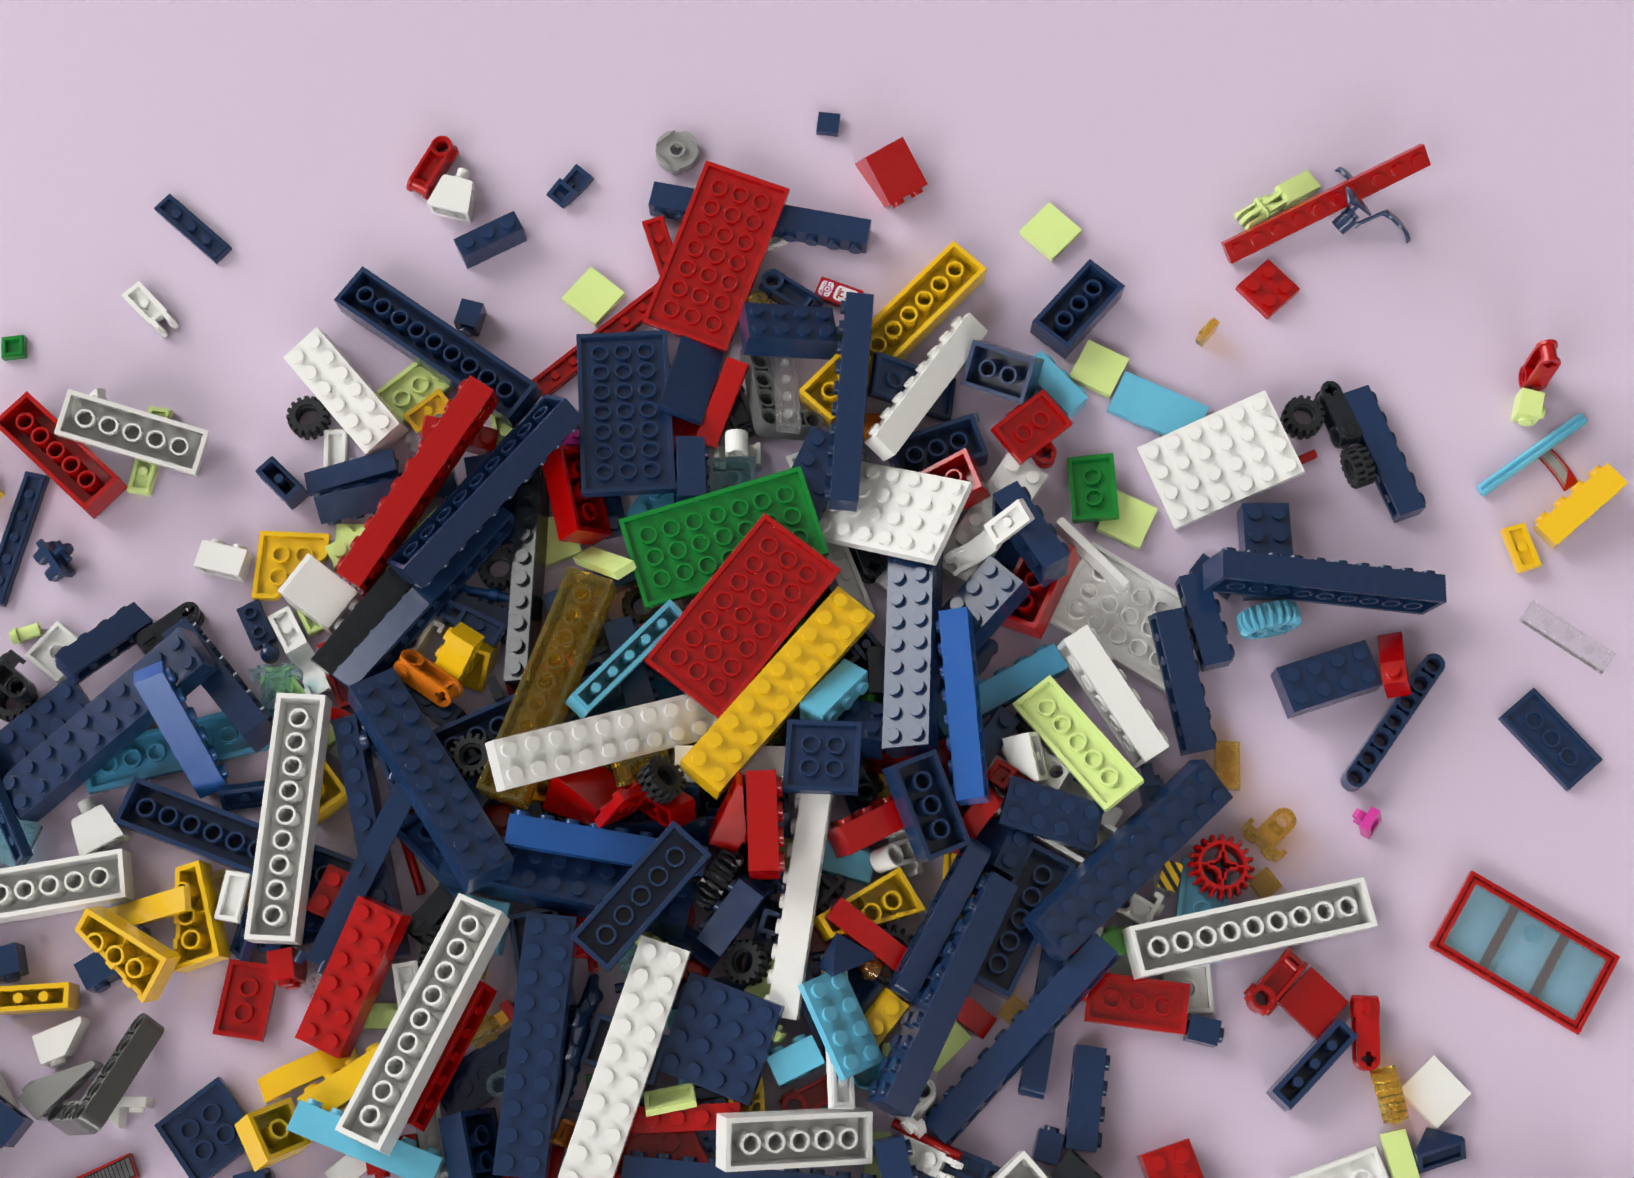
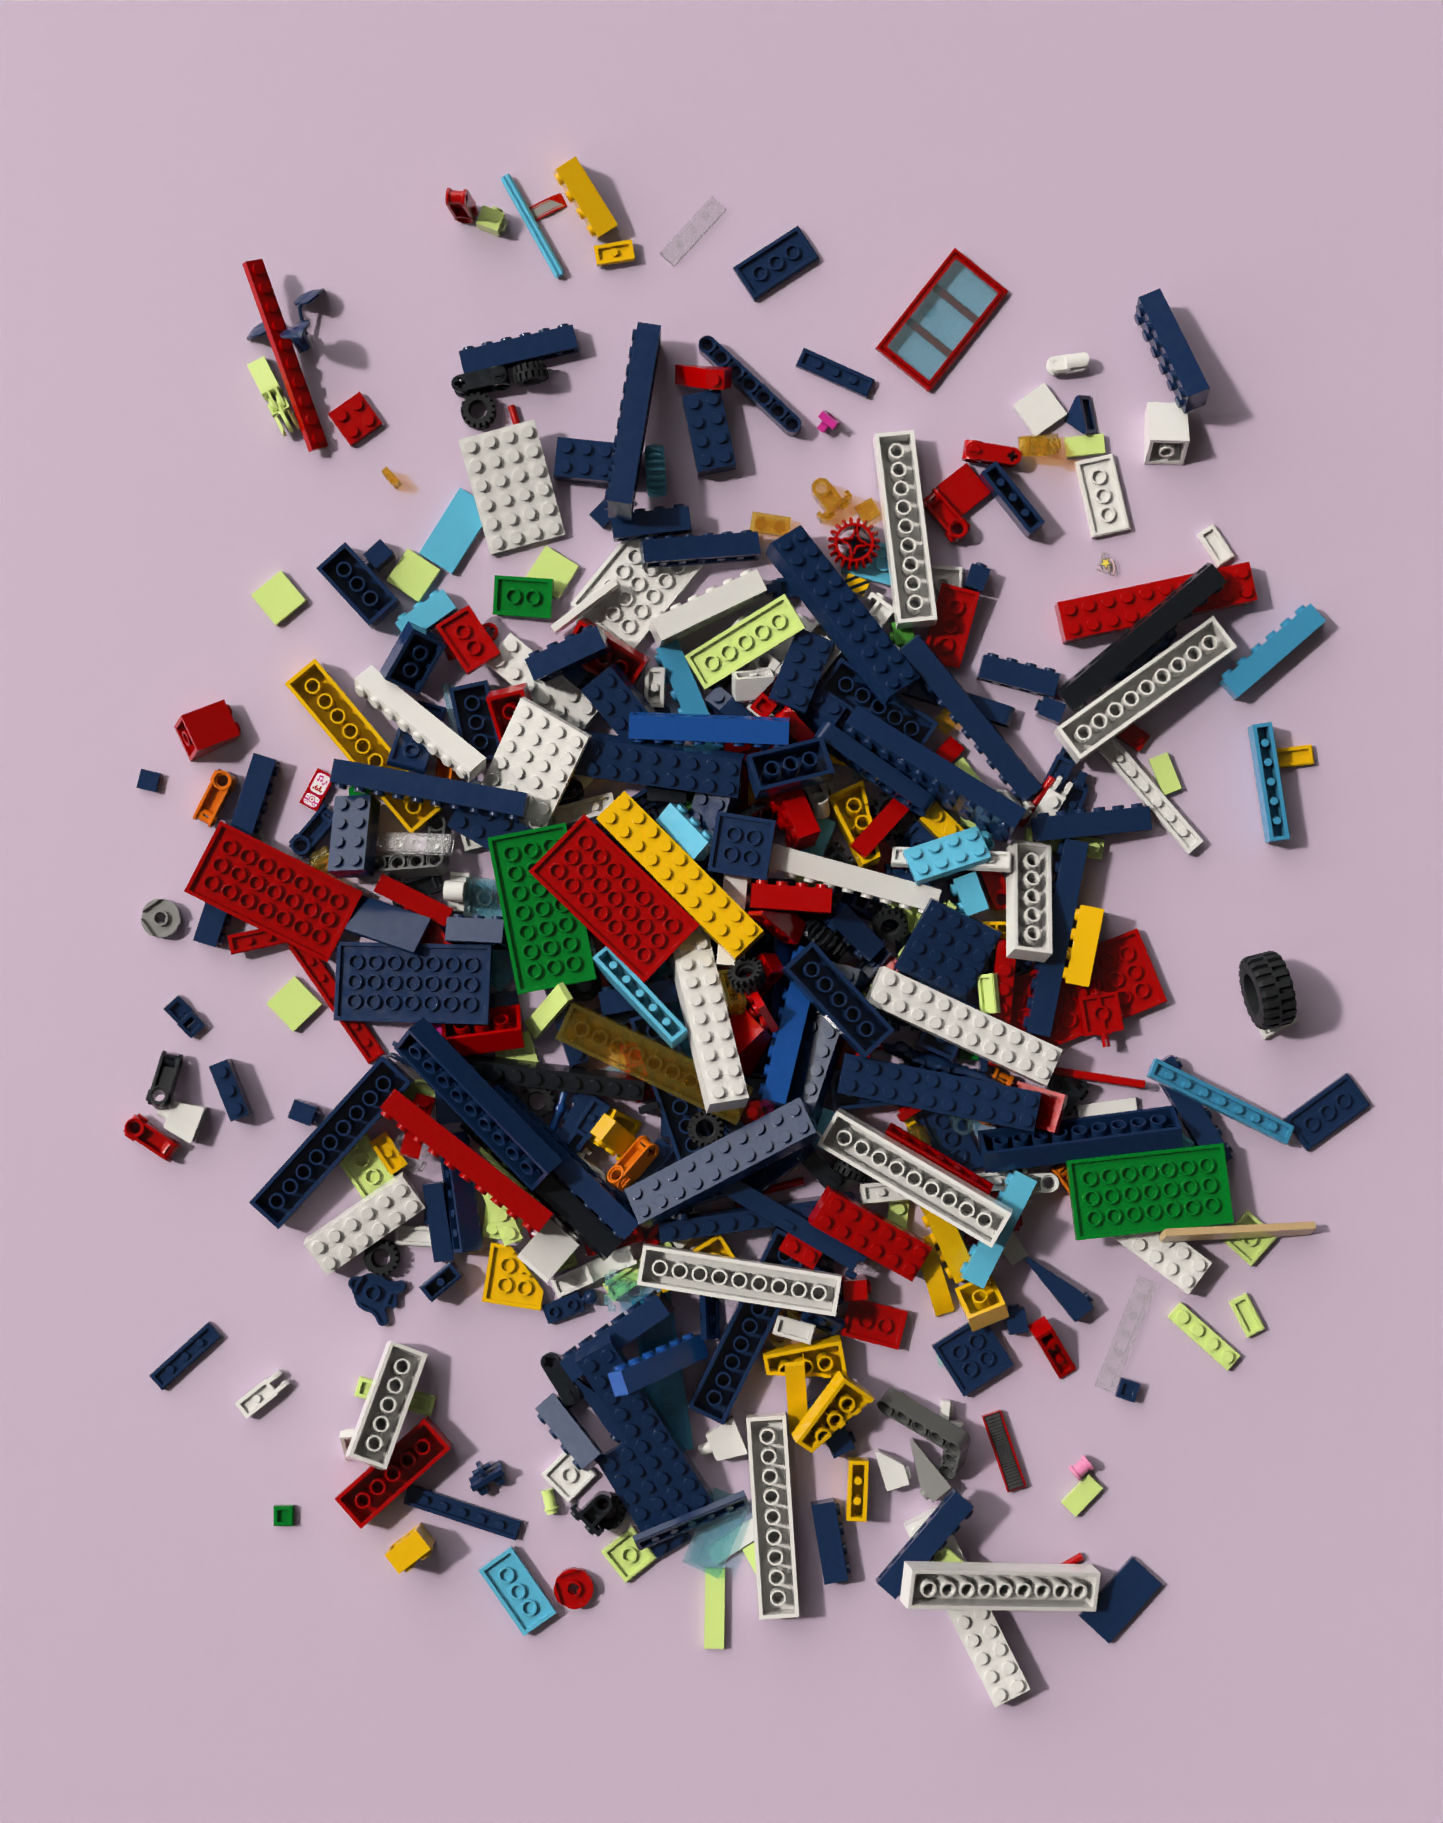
camera: 85 degrees left, 15 degrees up
(223, 560) = (504, 1333): white brick -> none
(265, 418) = (375, 1294): none -> dark blue tile
(496, 171) = (165, 1080): none -> black piece
(817, 190) = (215, 798): none -> orange piece
(843, 955) = (895, 847): dark blue slope -> none
(871, 969) = (905, 828): clear orange plate -> none
(990, 539) = (568, 687): white piece -> none
(1007, 647) = (655, 685): none -> white slope
(1115, 328) = (378, 556): none -> dark blue brick
(1429, 825) = (835, 373): none -> dark blue tile
(1502, 1122) = (1067, 363): none -> white arm

